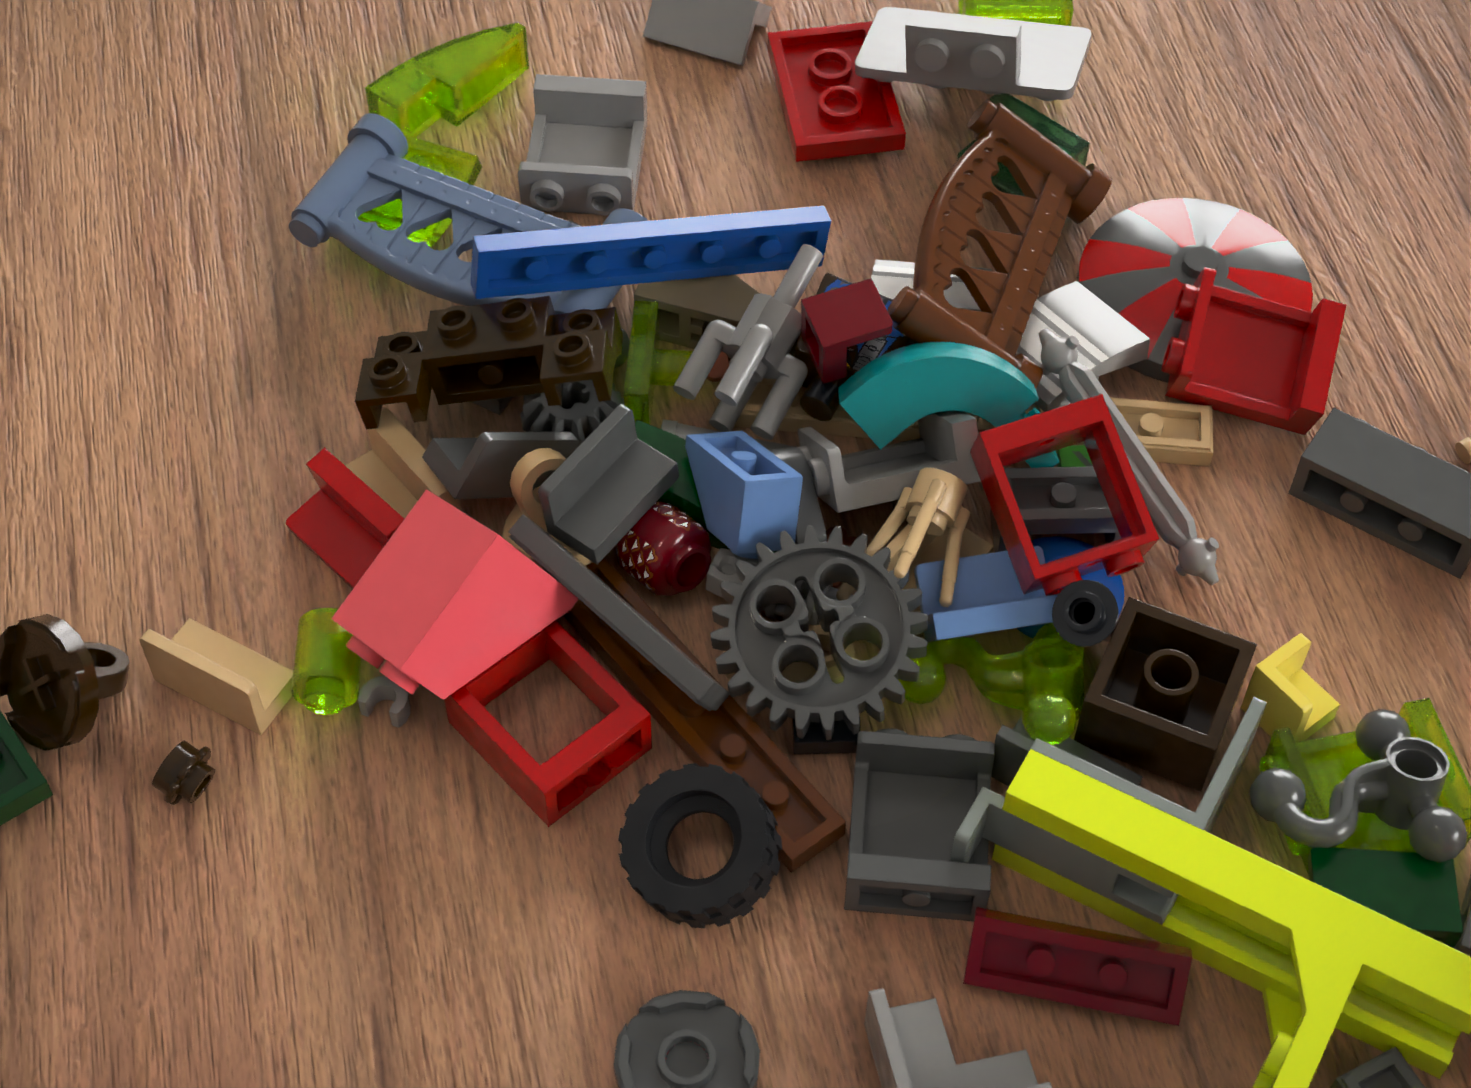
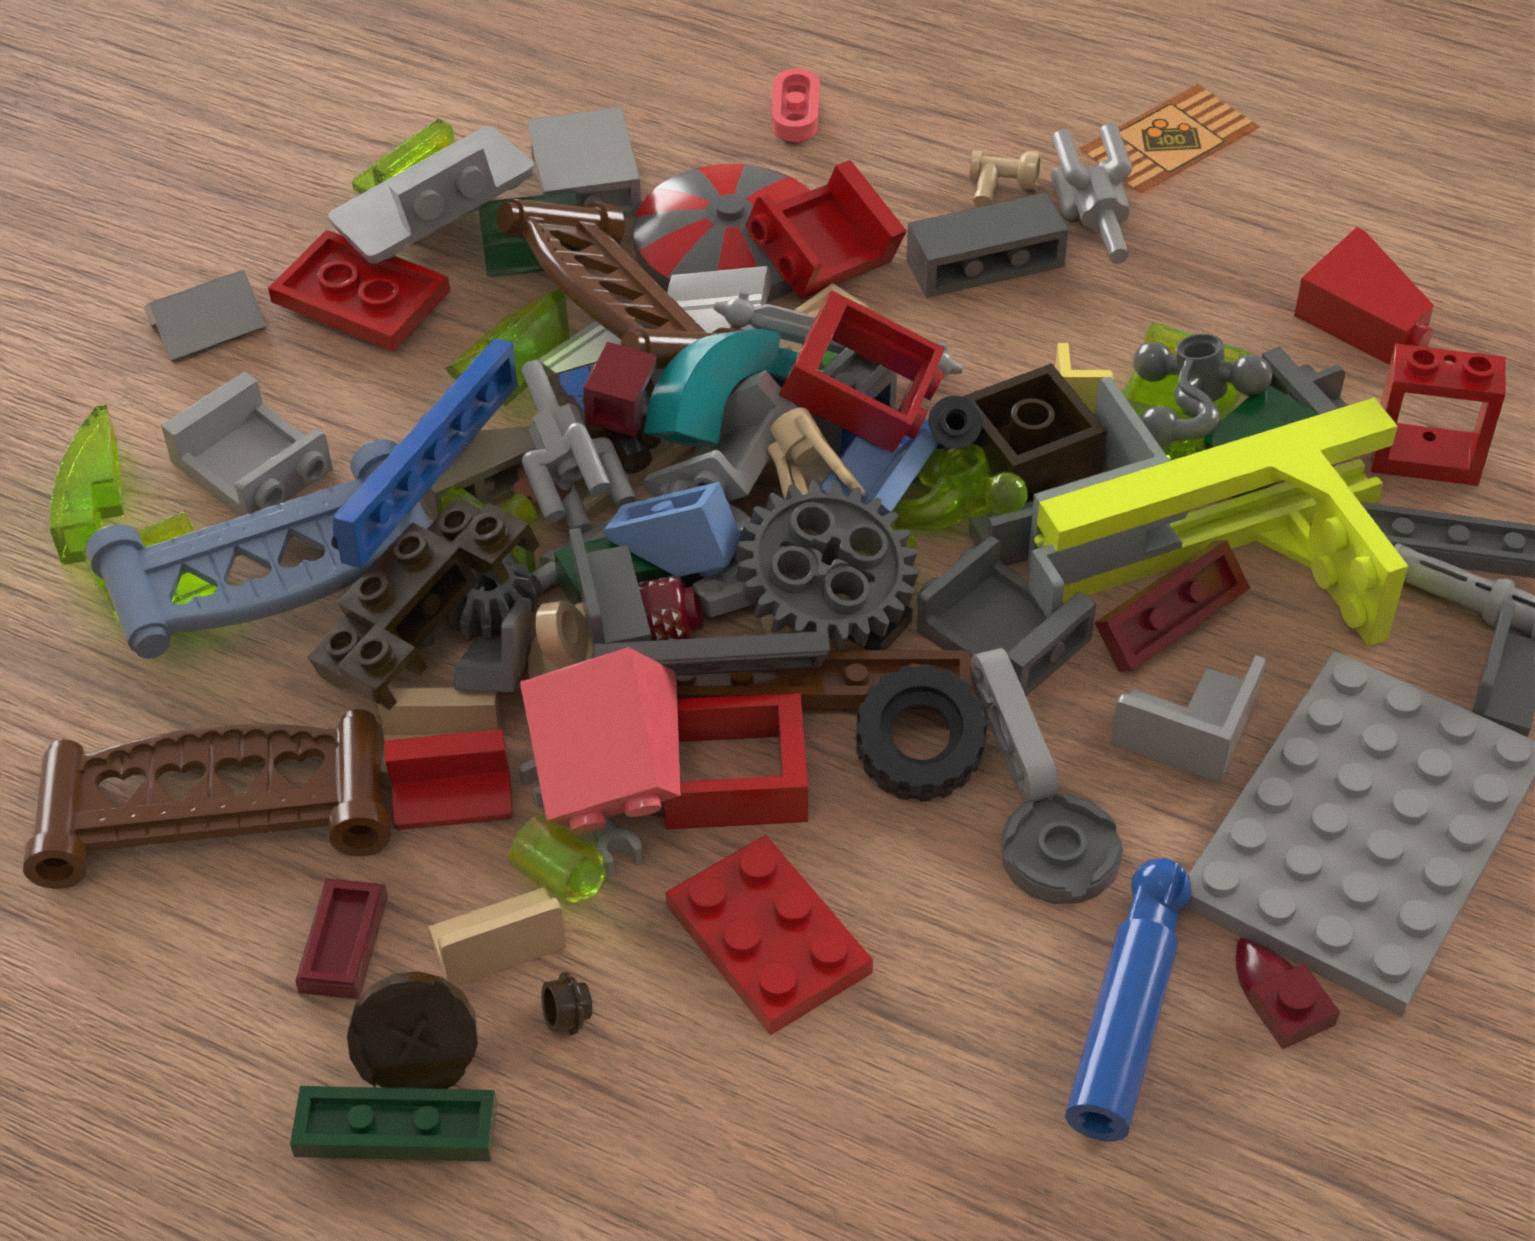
camera: 50 degrees left, 5 degrees down
(141, 569) = (341, 939): none -> dark red tile
(264, 466) = (79, 818): none -> reddish brown piece
(387, 880) = (769, 934): none -> red plate
(783, 921) = (1014, 725): none -> light grey beam
(868, 234) = (531, 328): none -> clear neon green slope
(1148, 126) = (587, 156): none -> light grey panel
(1410, 224) = (795, 105): none -> coral plate

